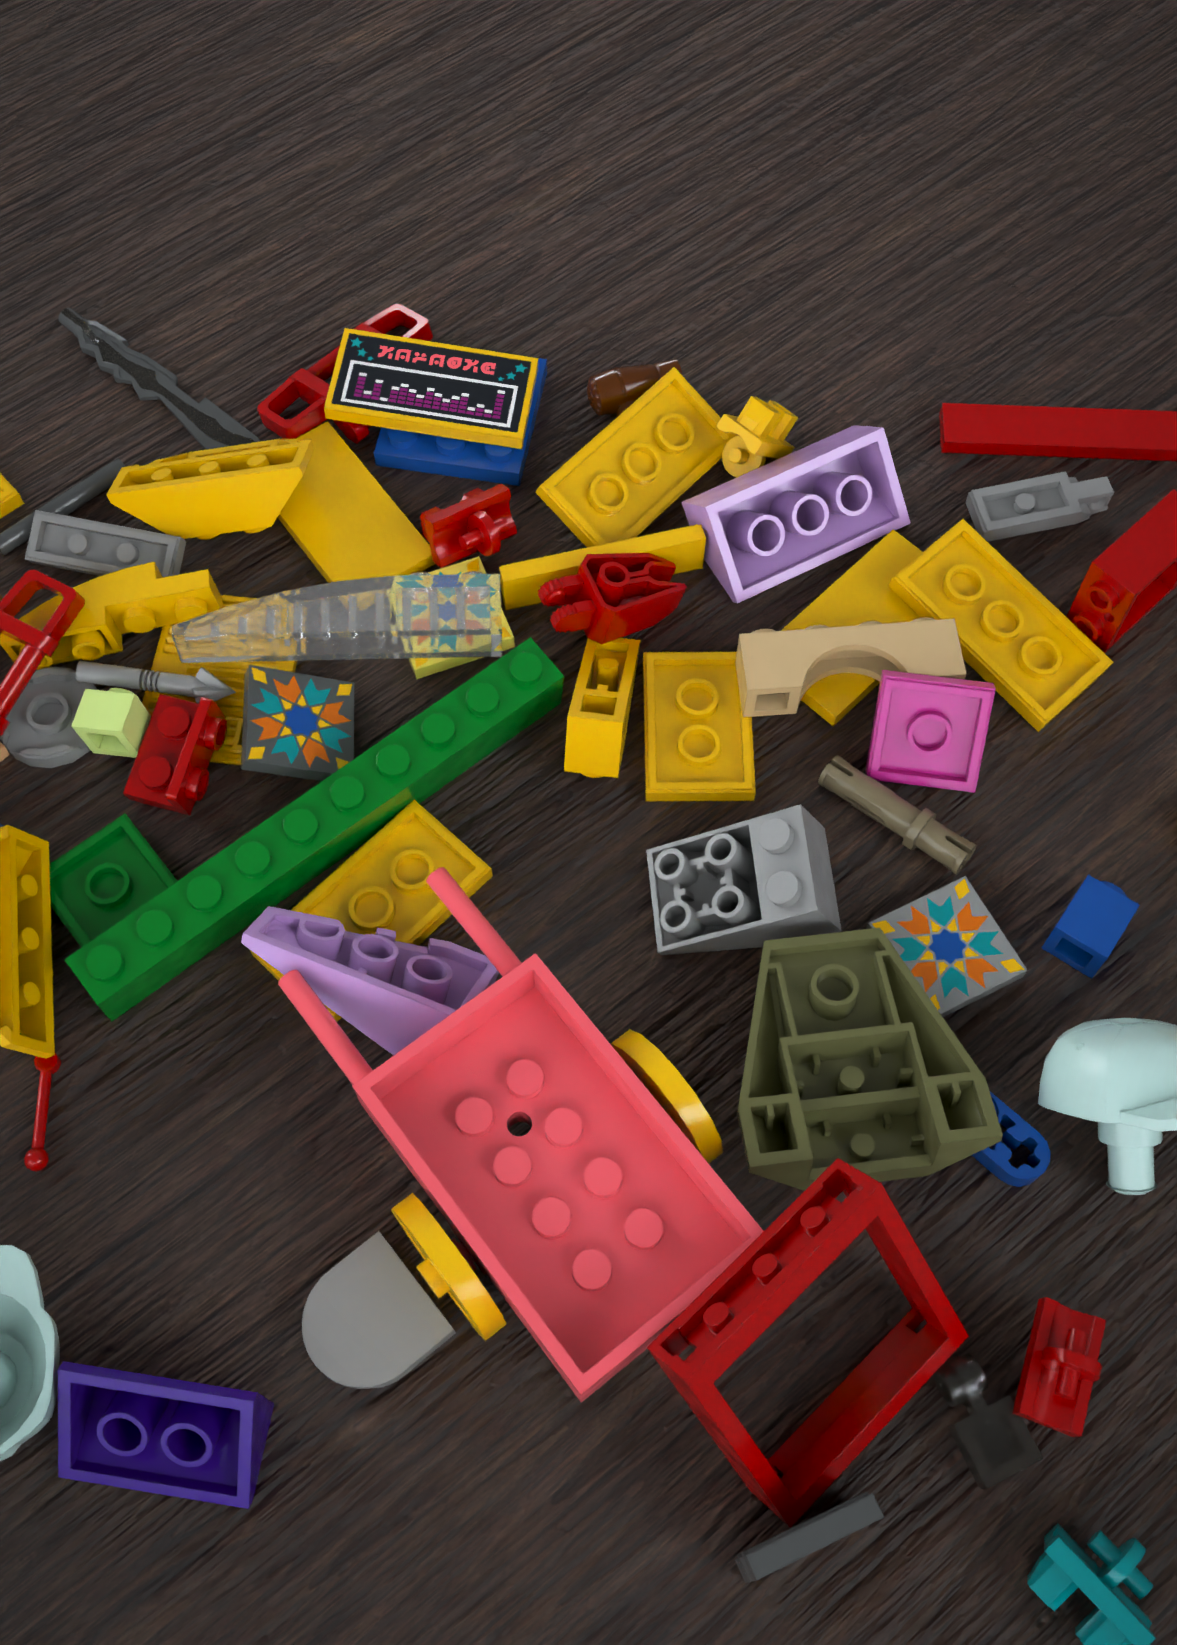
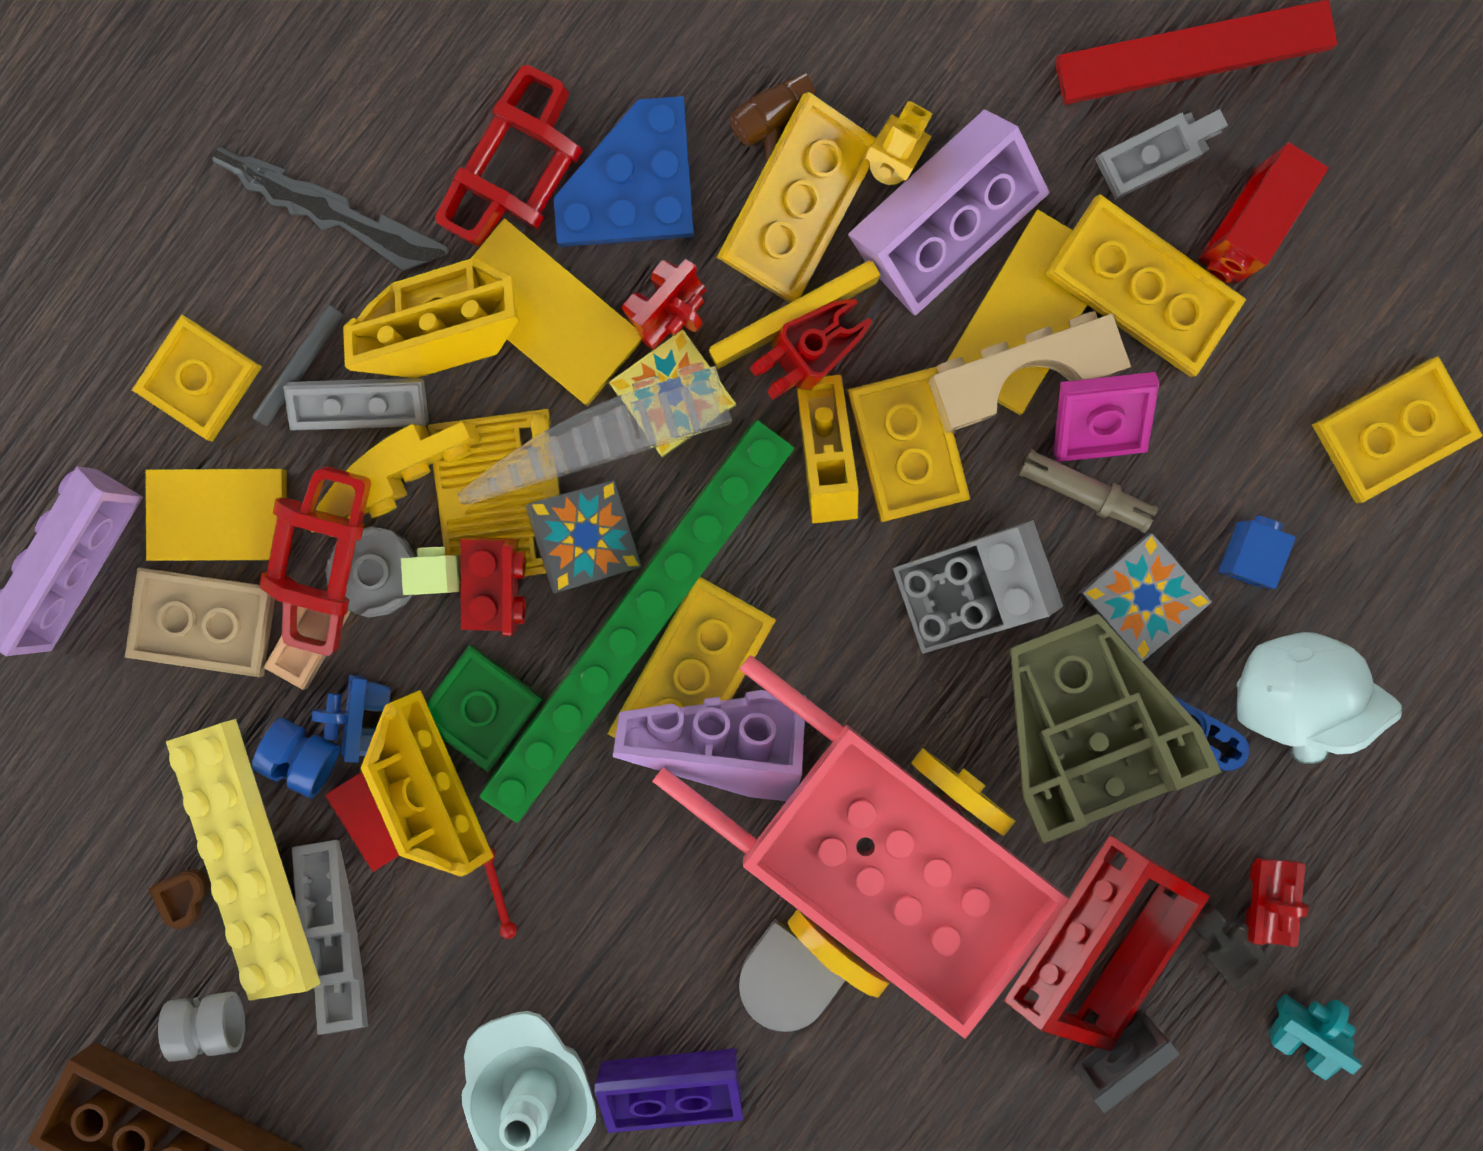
camera: 15 degrees left, 25 degrees up
(197, 686) = (490, 520): light grey piece -> none
(432, 388) = (593, 170): tile -> none

